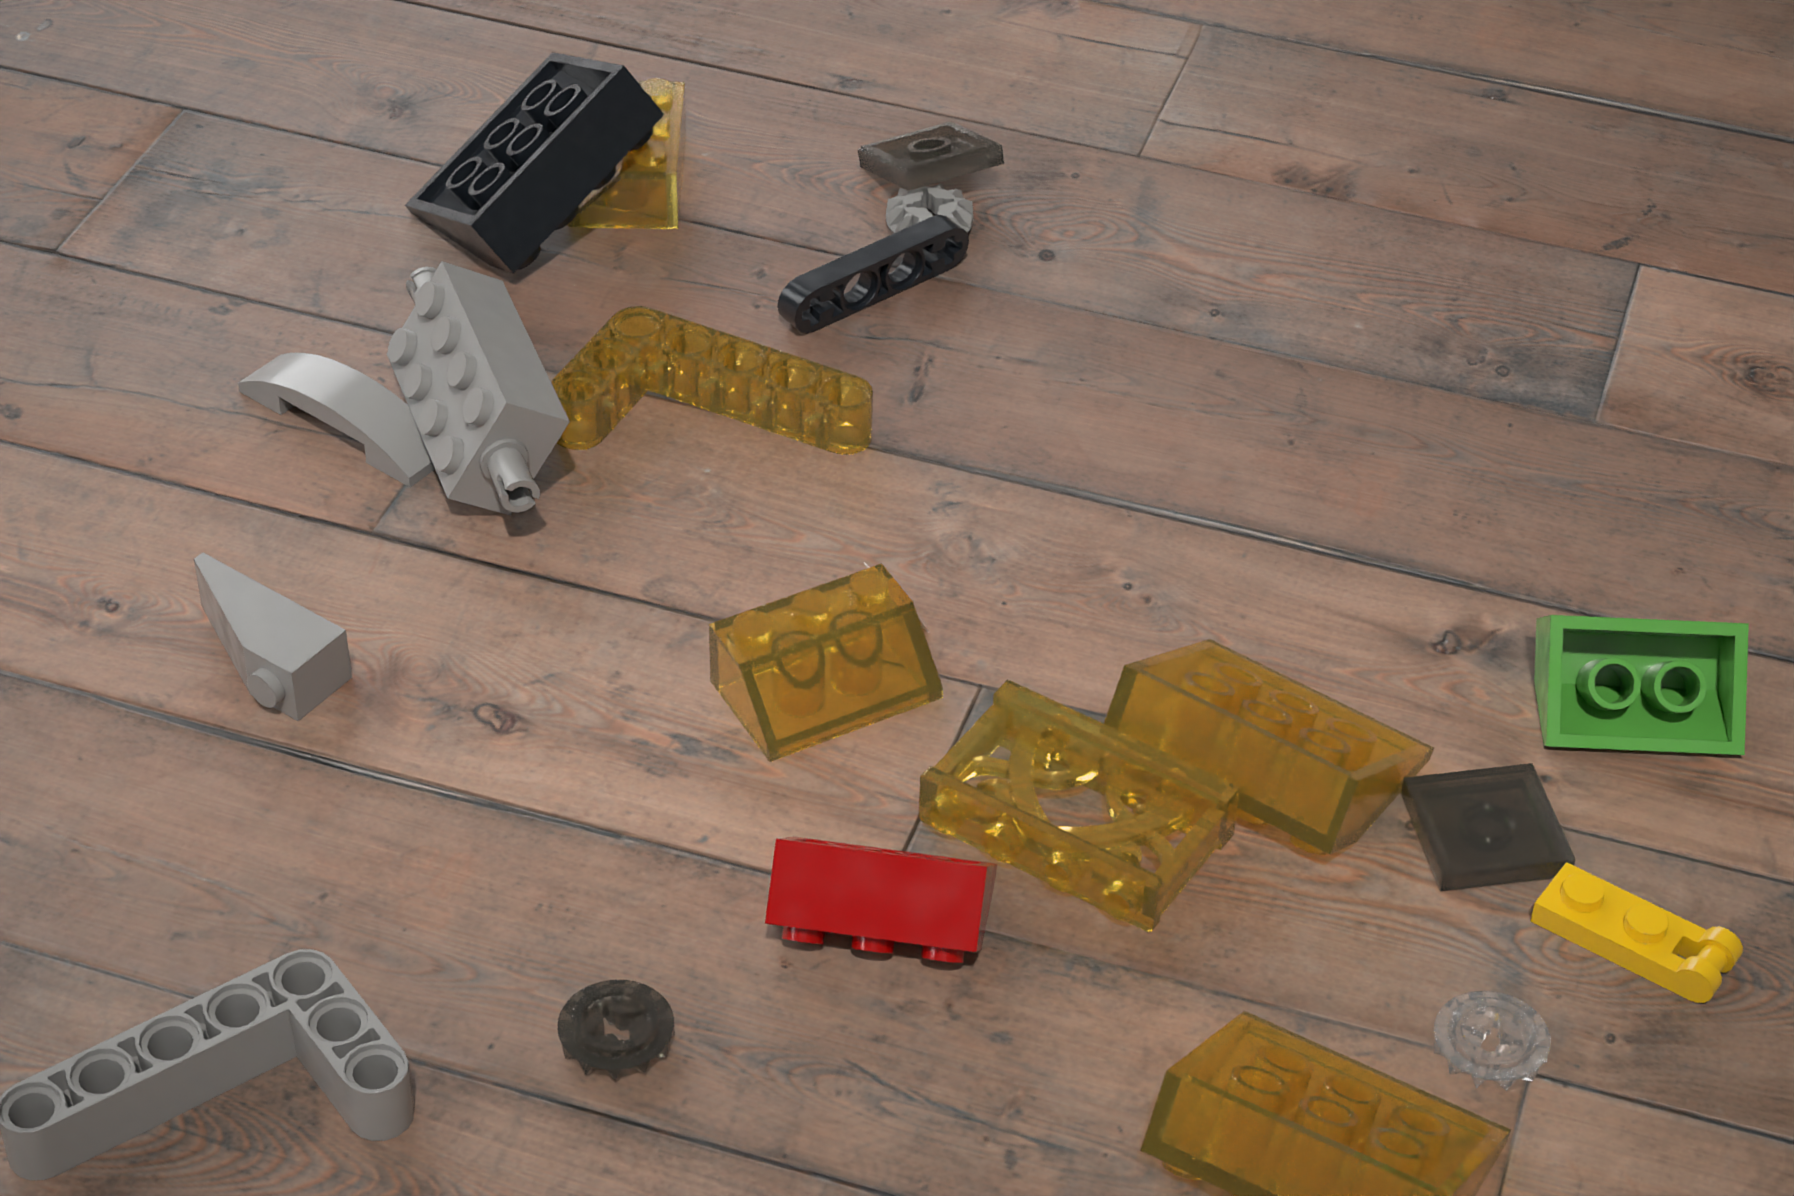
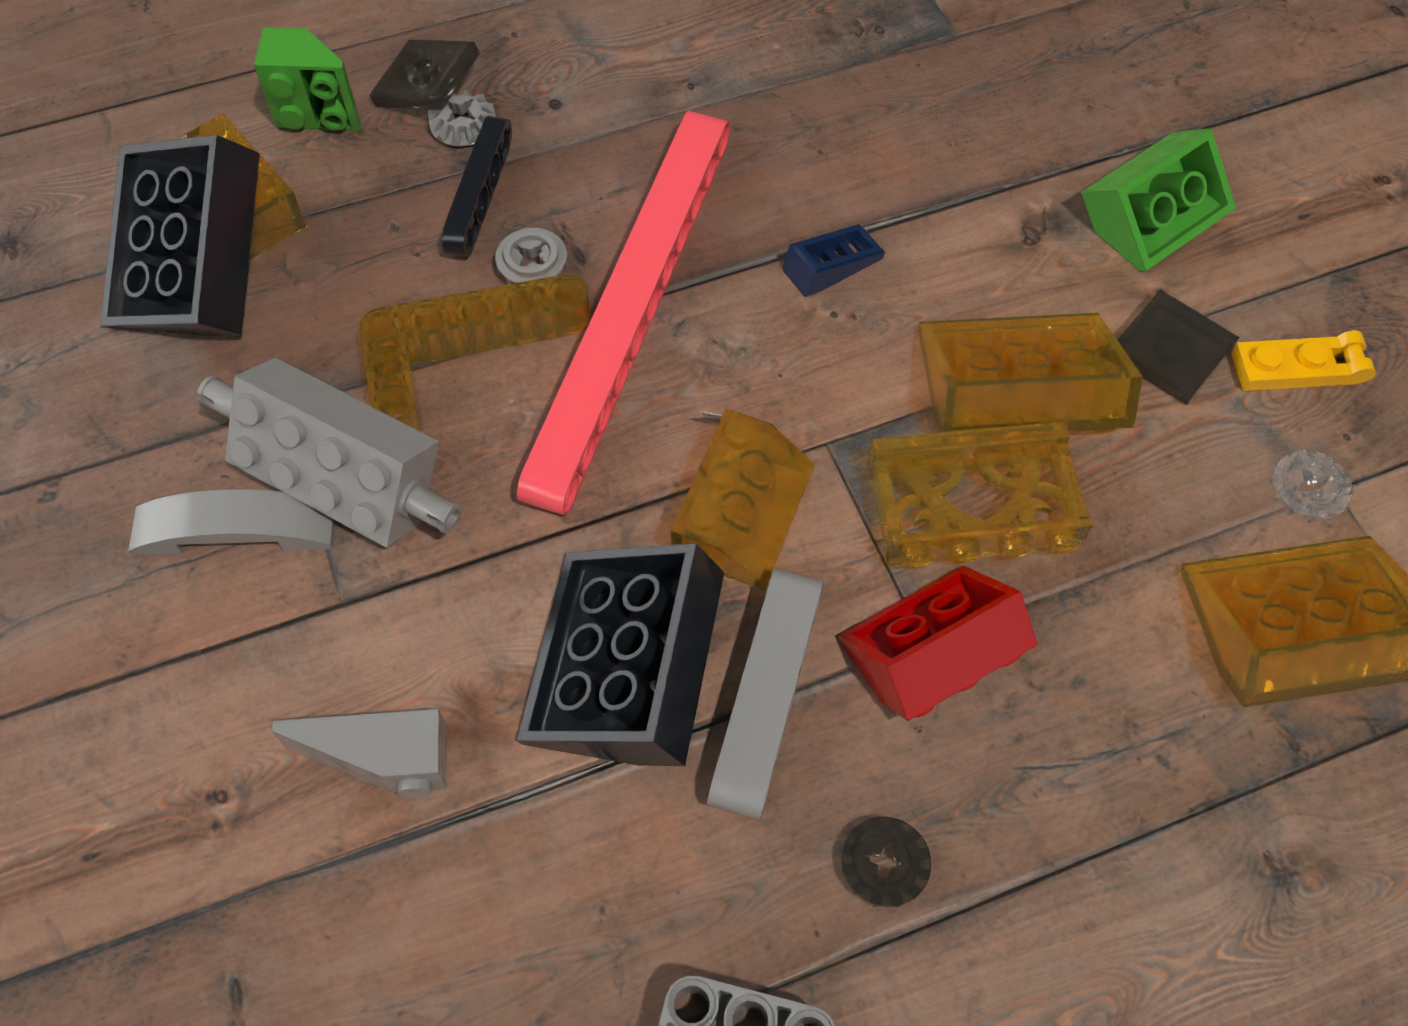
camera: 40 degrees left, 20 degrees up
(571, 714) = (625, 655): none -> black slope
(662, 823) = (765, 694): none -> light grey beam
(788, 96) = (304, 82): none -> bright green slope
(878, 354) = (529, 244): none -> light grey gear
(902, 449) = (622, 317): none -> coral beam
(1178, 530) = (812, 275): none -> dark blue slope

